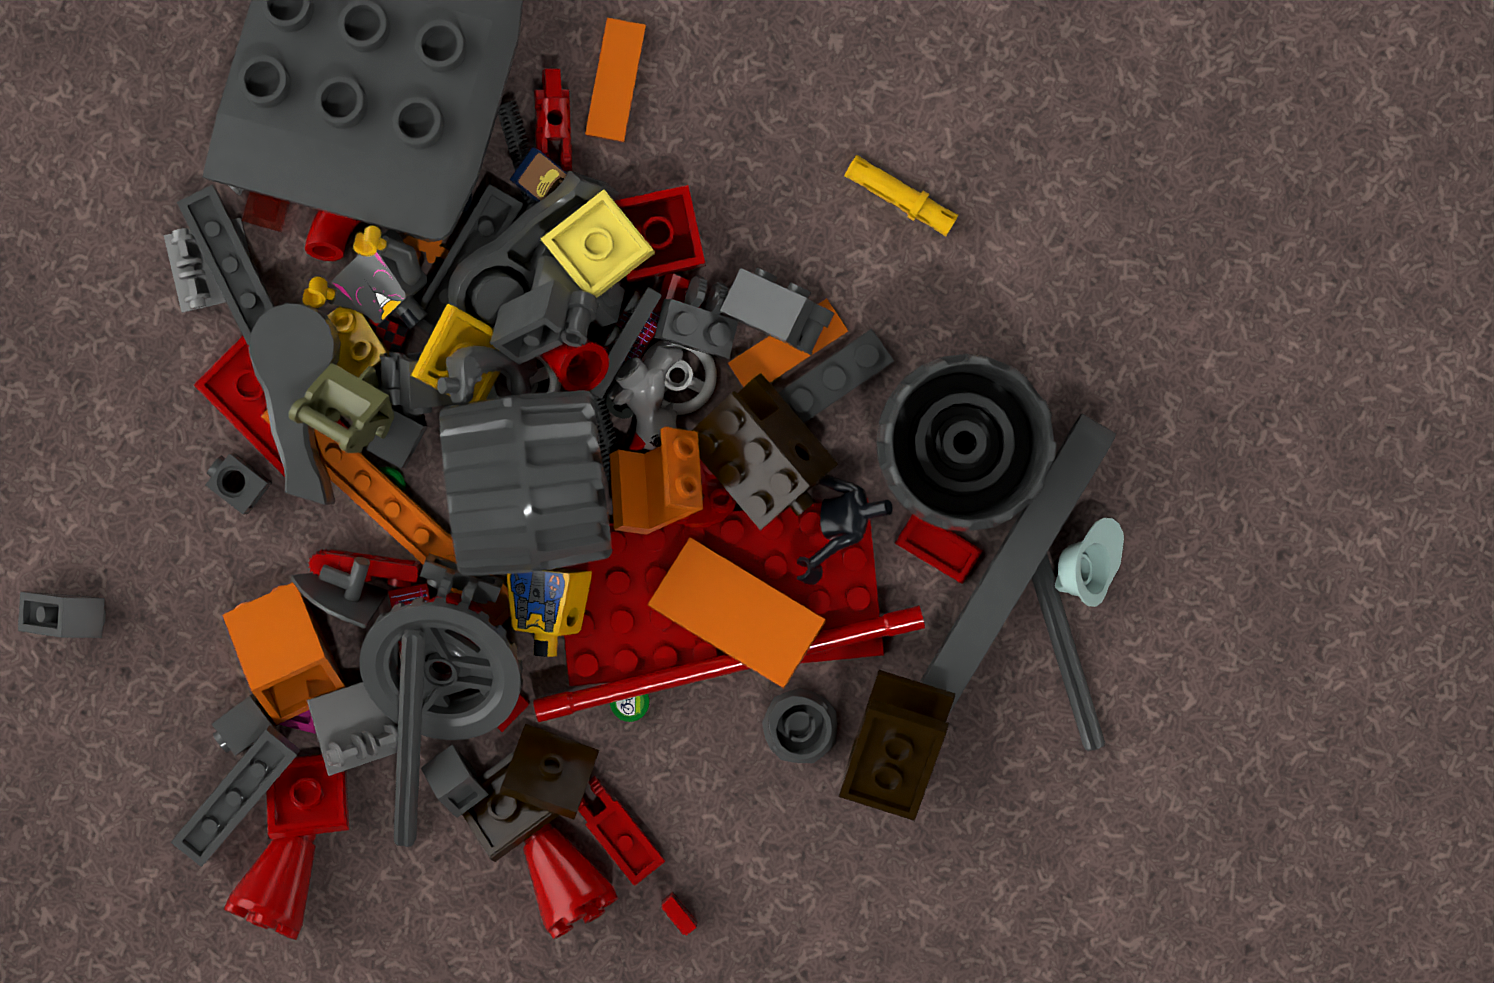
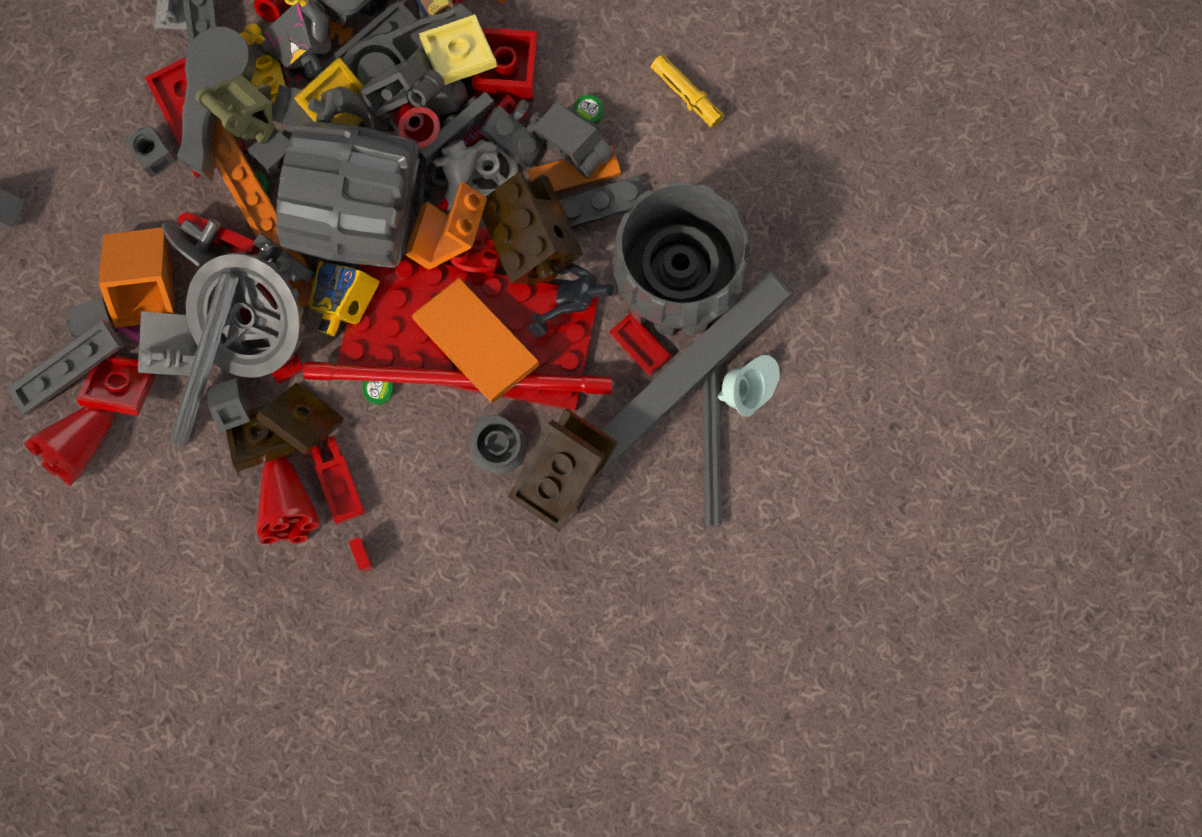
camera: 20 degrees right, 10 degrees down
(780, 258) = (589, 108): none -> tile

